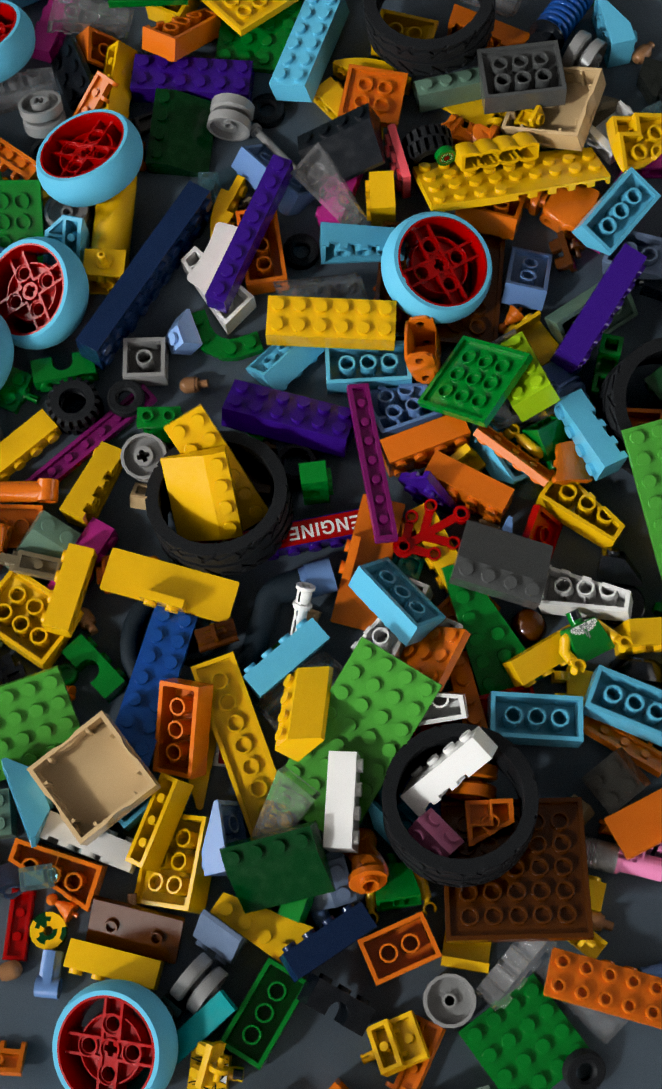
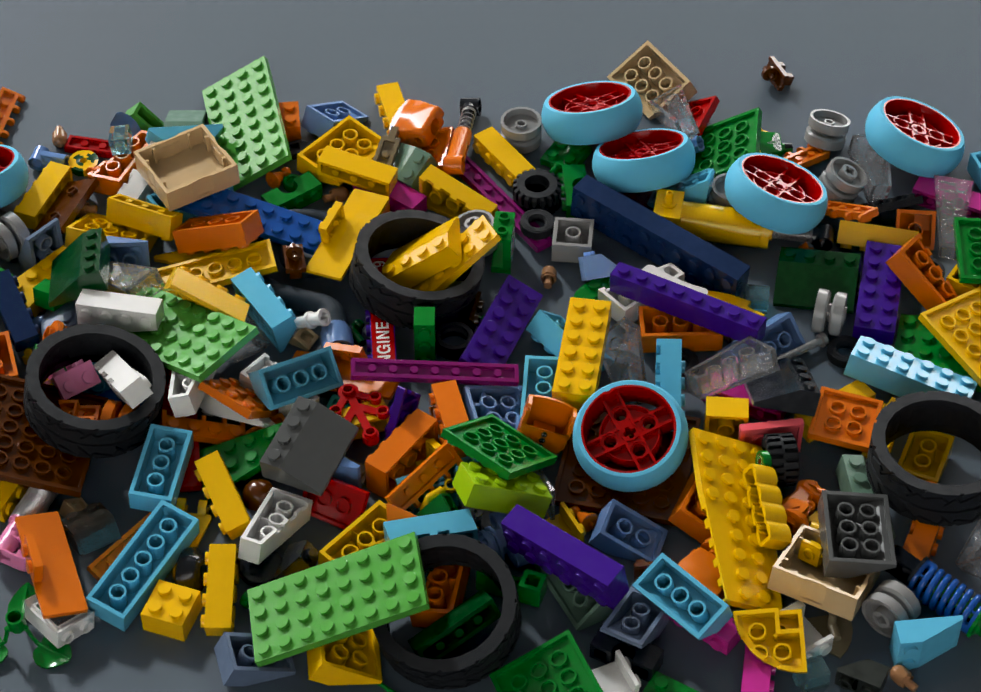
camera: 90 degrees right, 25 degrees down
(287, 565) = (357, 329): none -> dark green arm
(587, 640) = (223, 511): torso -> none

